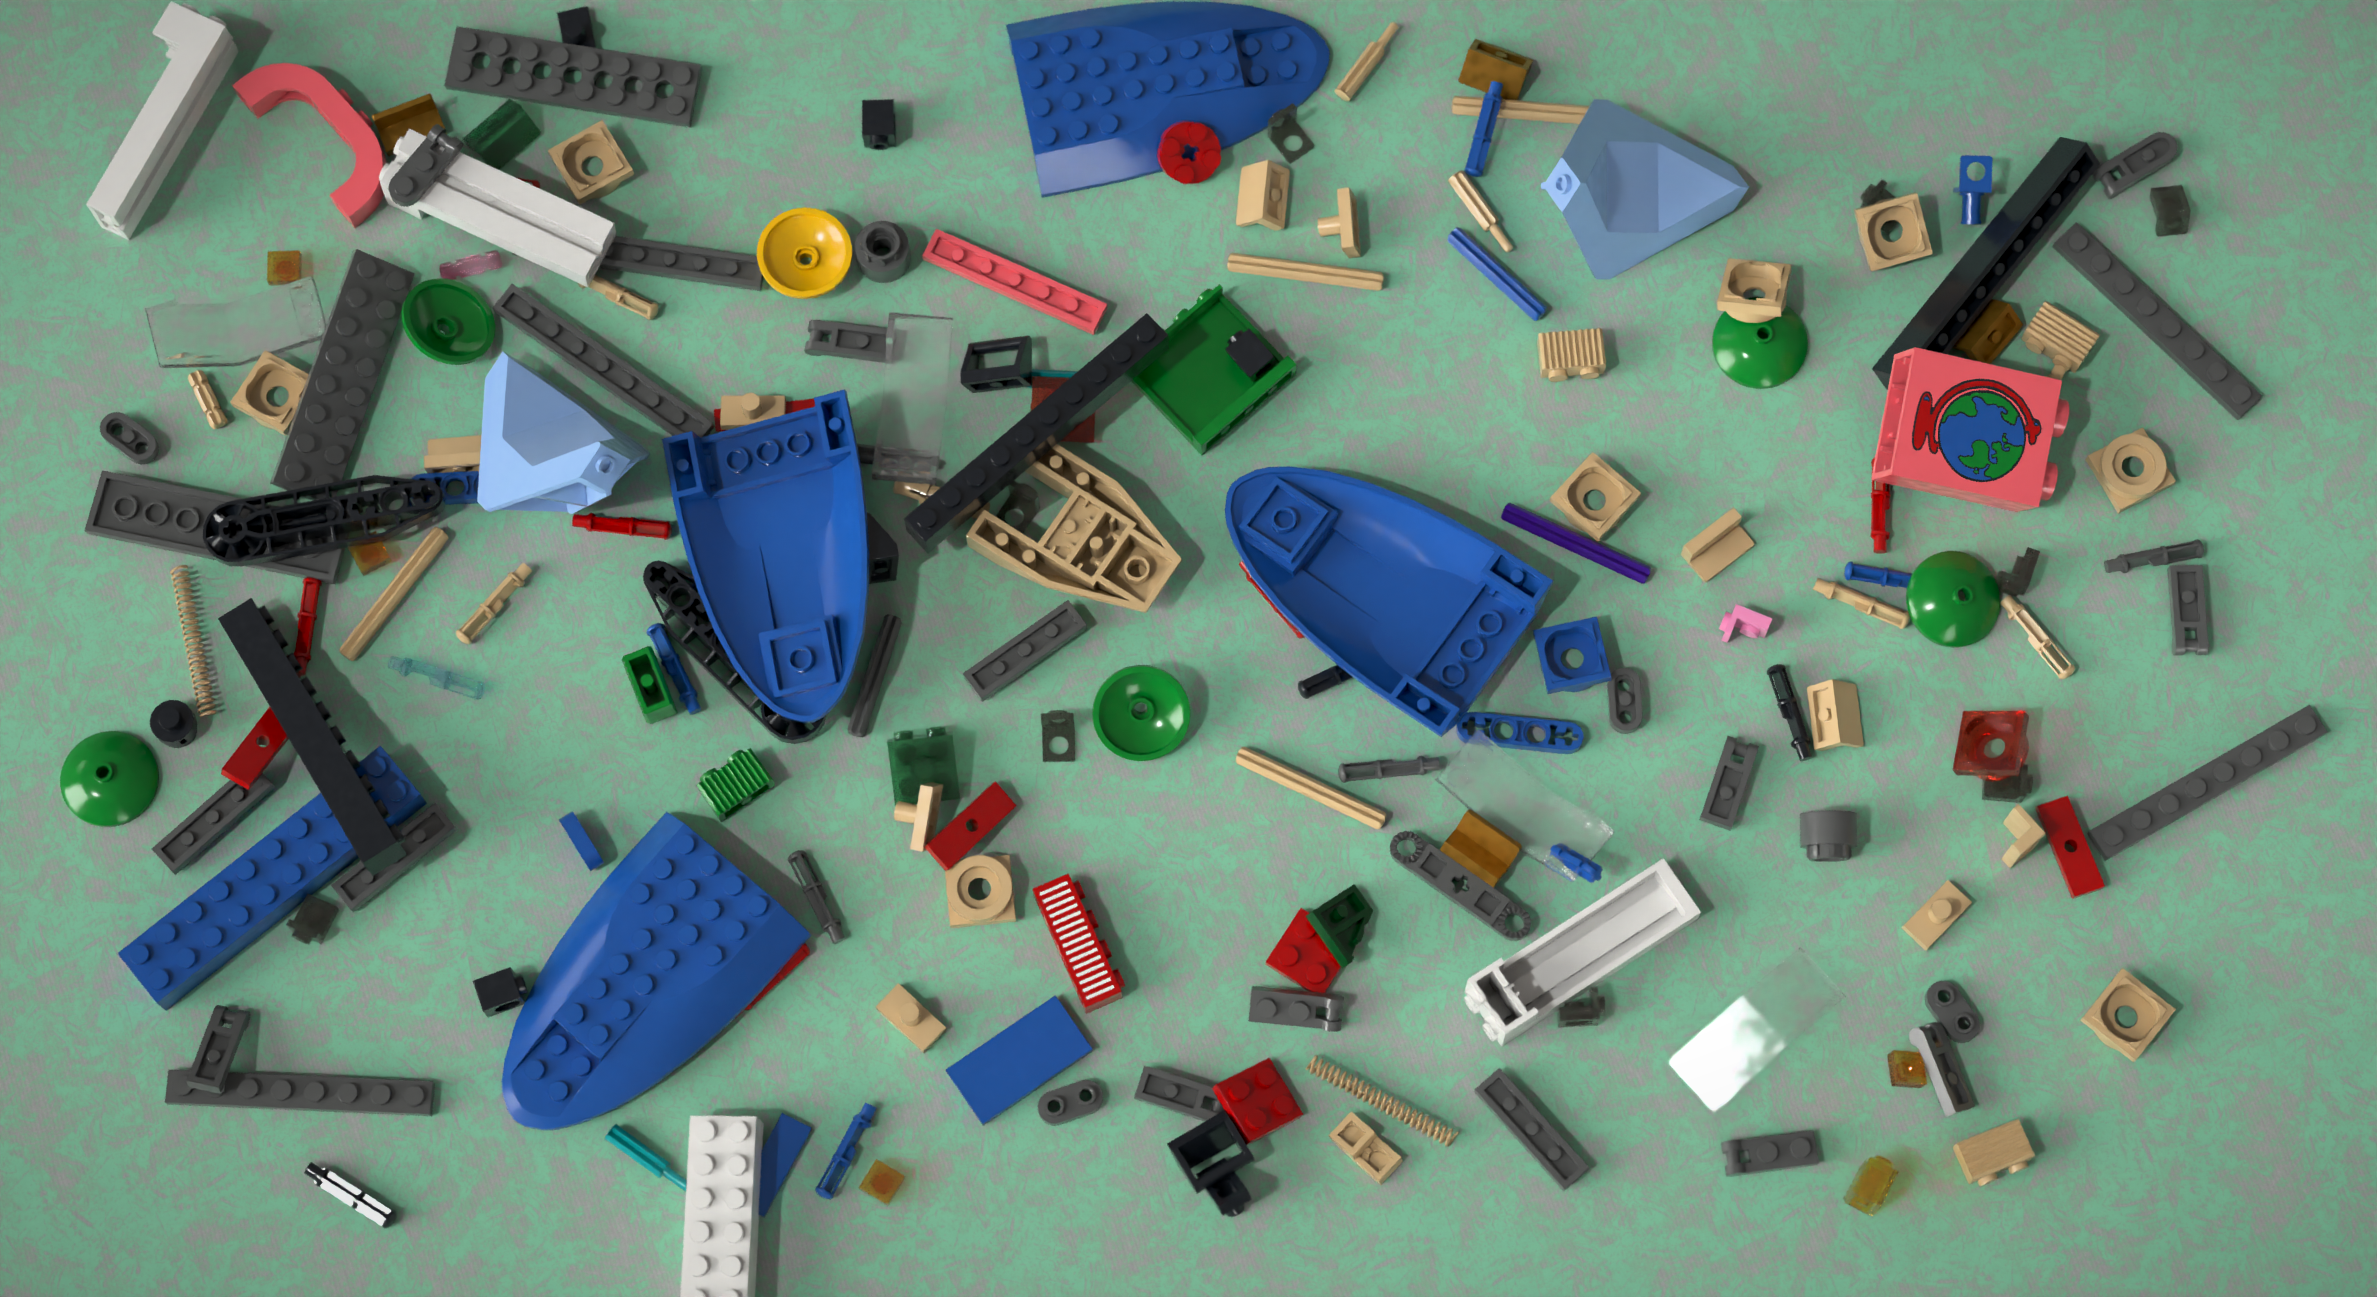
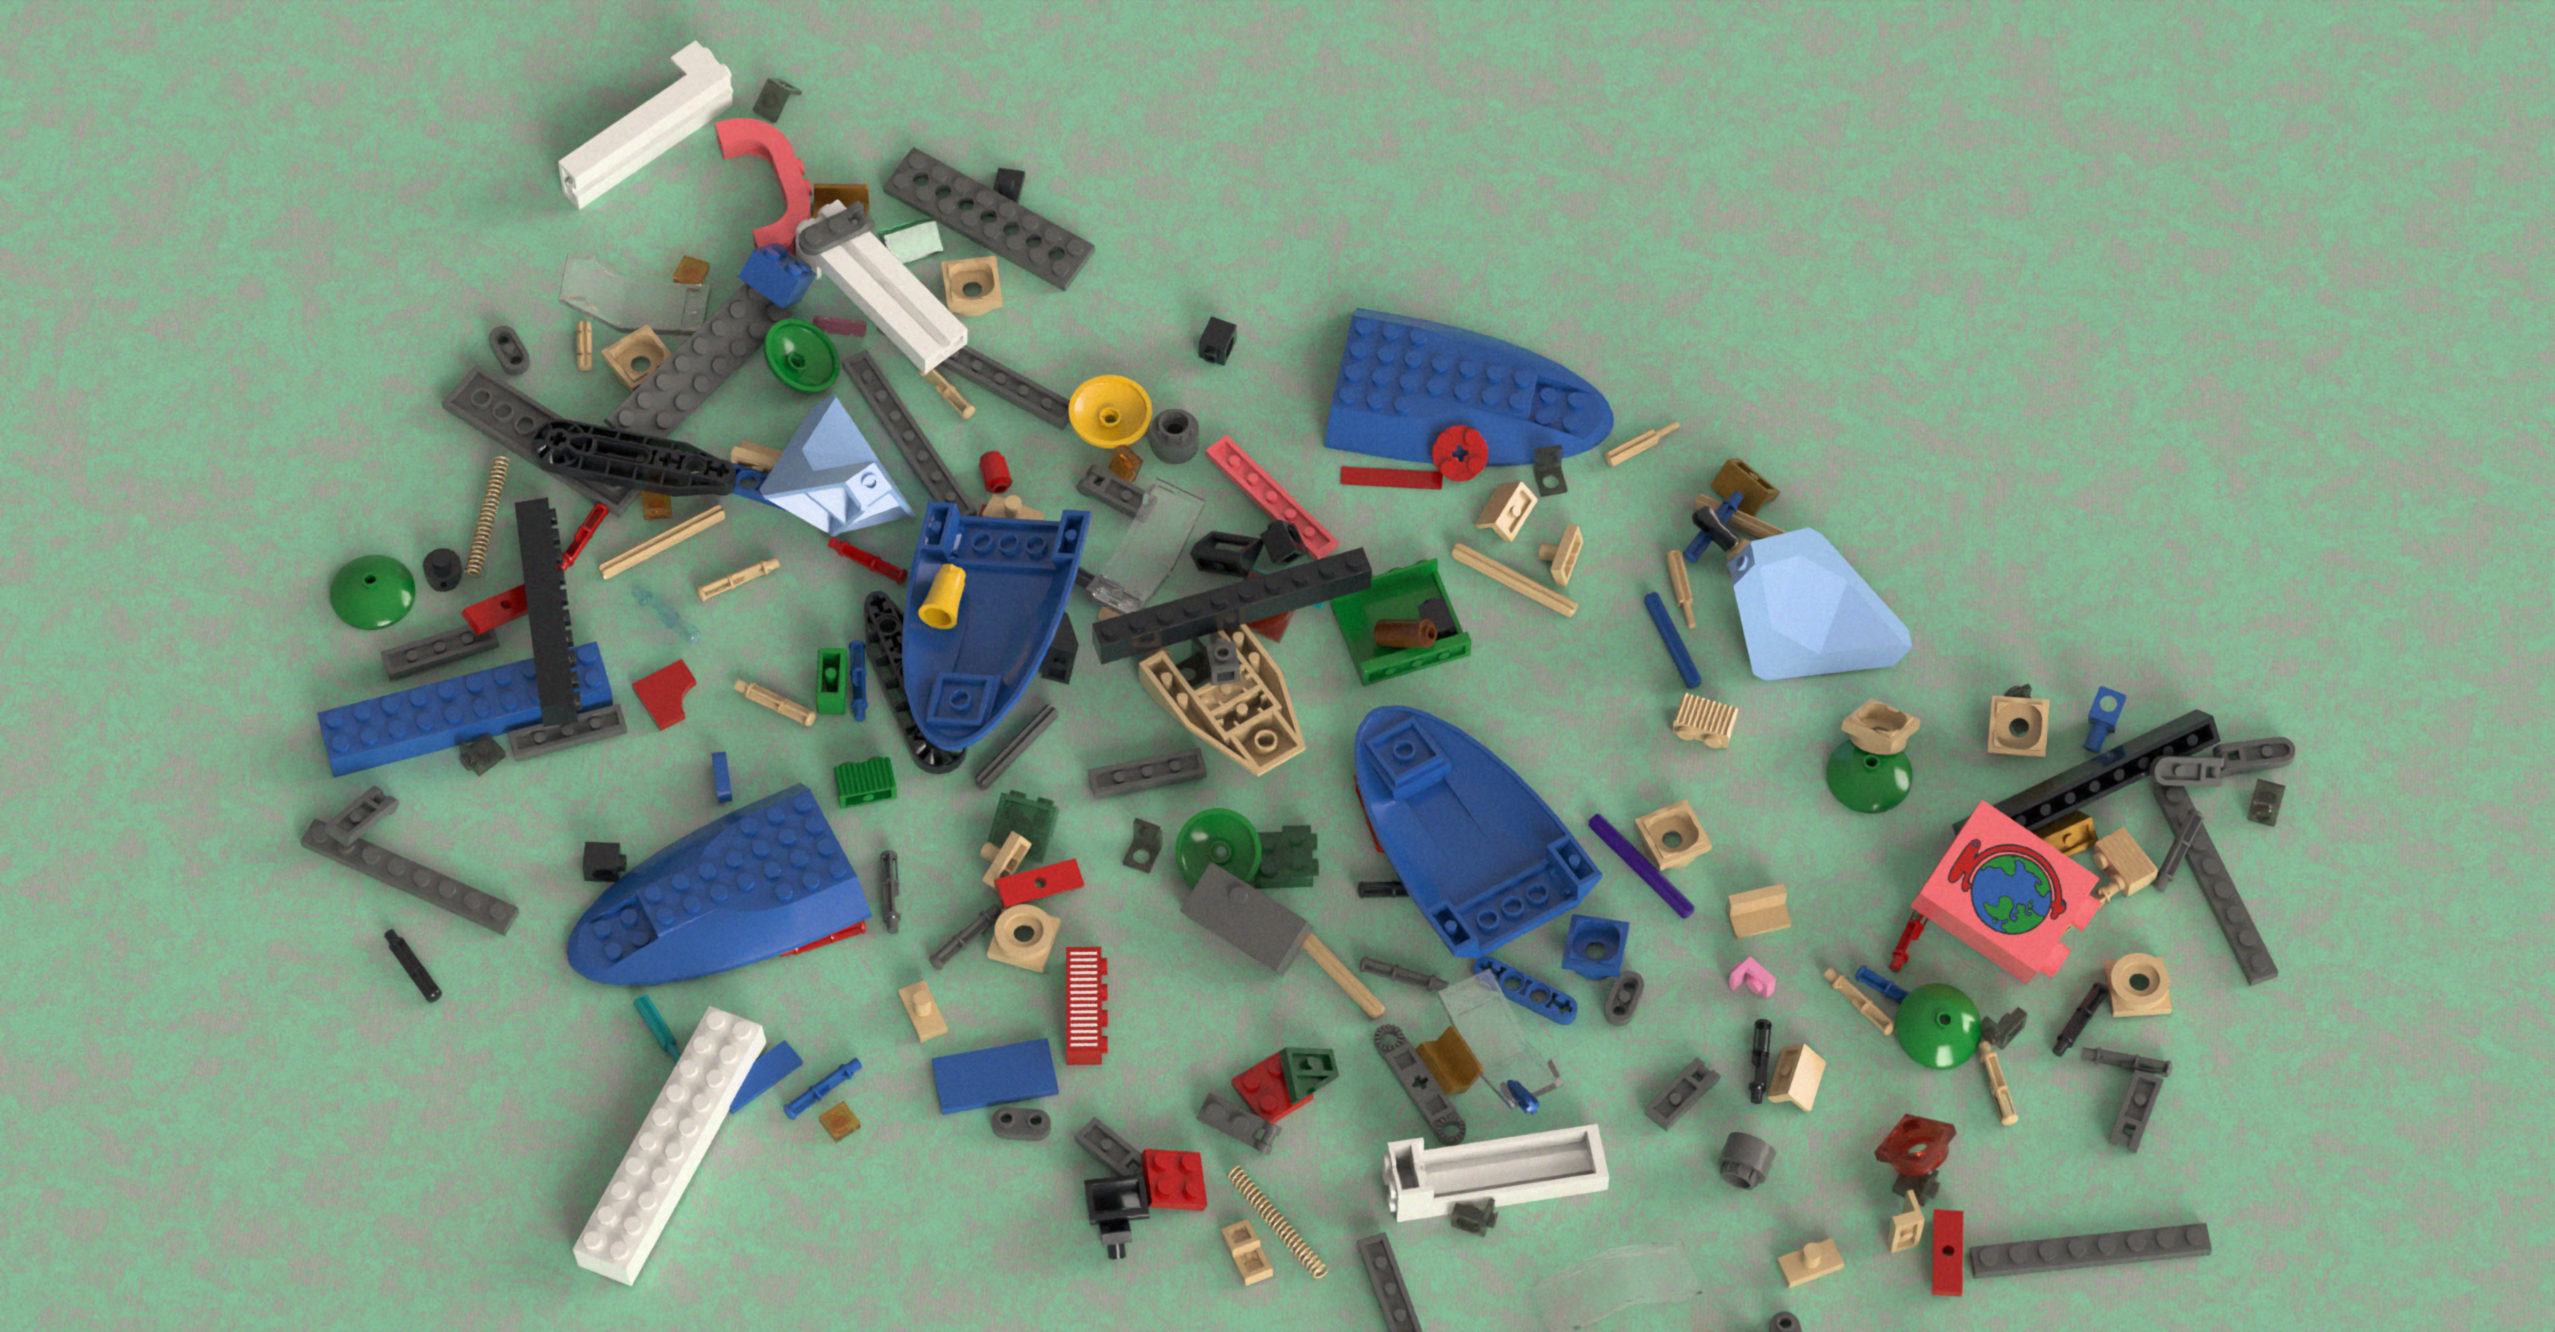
camera: 20 degrees right, 15 degrees down
(281, 27) = (773, 98): none -> clear smoke bracket
(381, 239) = (777, 274): none -> blue brick
(475, 767) = (664, 693): none -> red tile
(599, 730) = (776, 702): none -> tan piece
(712, 370) = (995, 472): none -> red brick
(729, 544) = (944, 597): none -> yellow plant
(845, 304) = (1125, 463): none -> clear orange plate
(918, 916) = (964, 937): none -> dark grey piece
(1051, 330) = (1283, 542): none -> black brick
(1059, 510) = (1222, 662): none -> dark grey brick
(1126, 205) = (1391, 478): none -> red sticker
(1204, 777) = (1247, 918): none -> dark grey brick
(1213, 685) = (1287, 858): none -> clear green plate
(1226, 384) = (1405, 633): none -> reddish brown brick
(1525, 145) = (1719, 532): none -> black piece
(2082, 211) = (2187, 770): none -> dark grey plate
(2088, 529) = (2080, 1018): none -> black piece
(2108, 301) = (2178, 849): none -> dark grey piece

